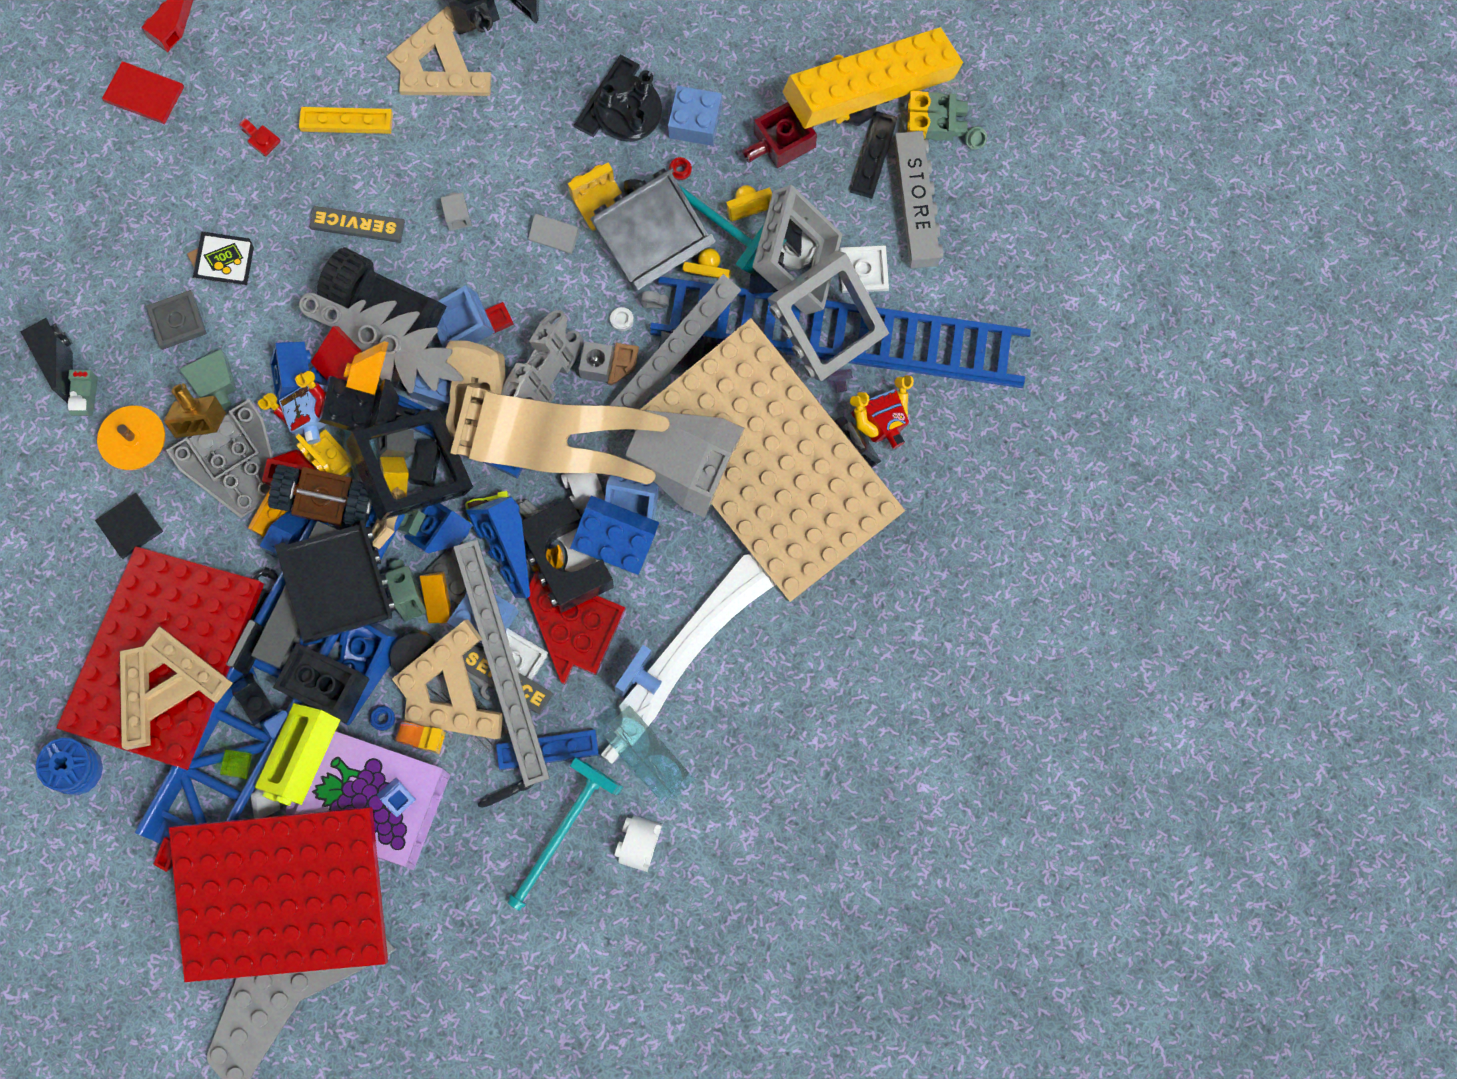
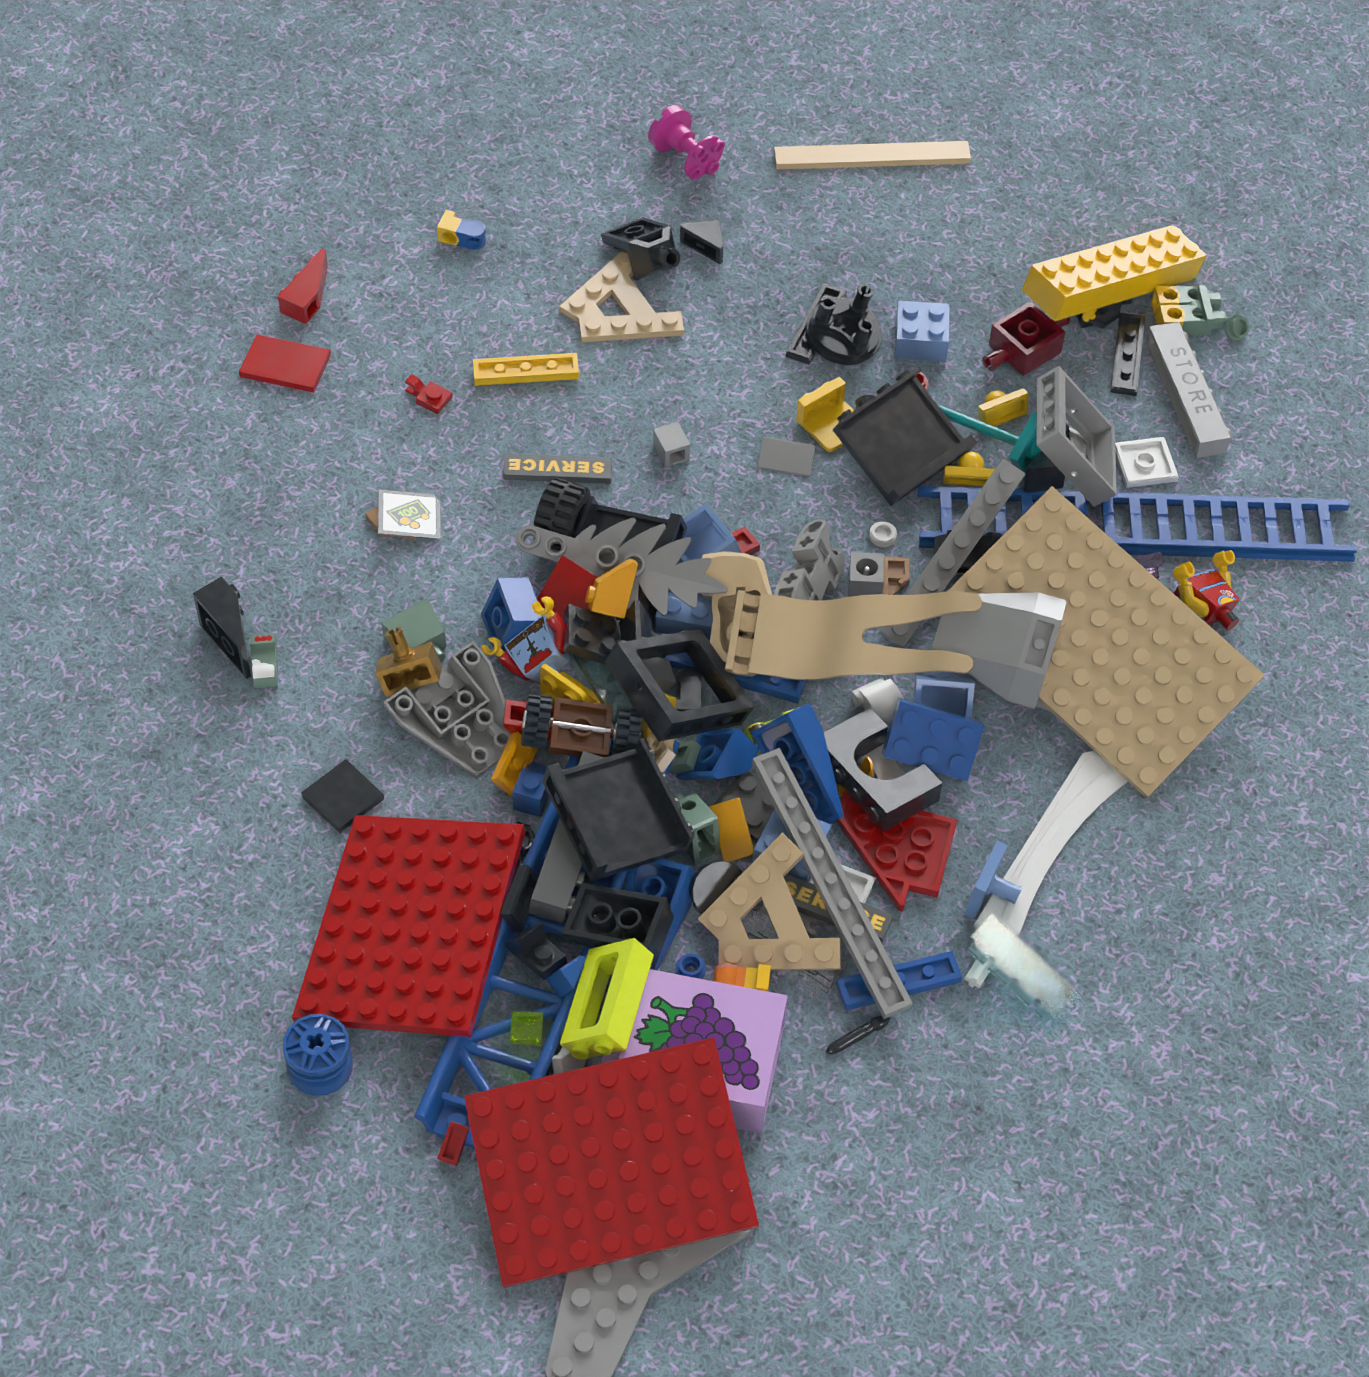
camera: 10 degrees left, 20 degrees down
(131, 437) = (337, 697): light orange piece -> none
(140, 704) = (459, 924): tan plate -> none
(176, 319) = (364, 579): dark grey plate -> none
(396, 797) = (739, 1029): slope -> none
(594, 780) = (968, 997): teal tile -> none
(638, 842) = (1032, 1071): white cylinder -> none
(654, 300) = (916, 510): light grey tile -> none
(783, 300) = (1156, 470): light grey piece -> none

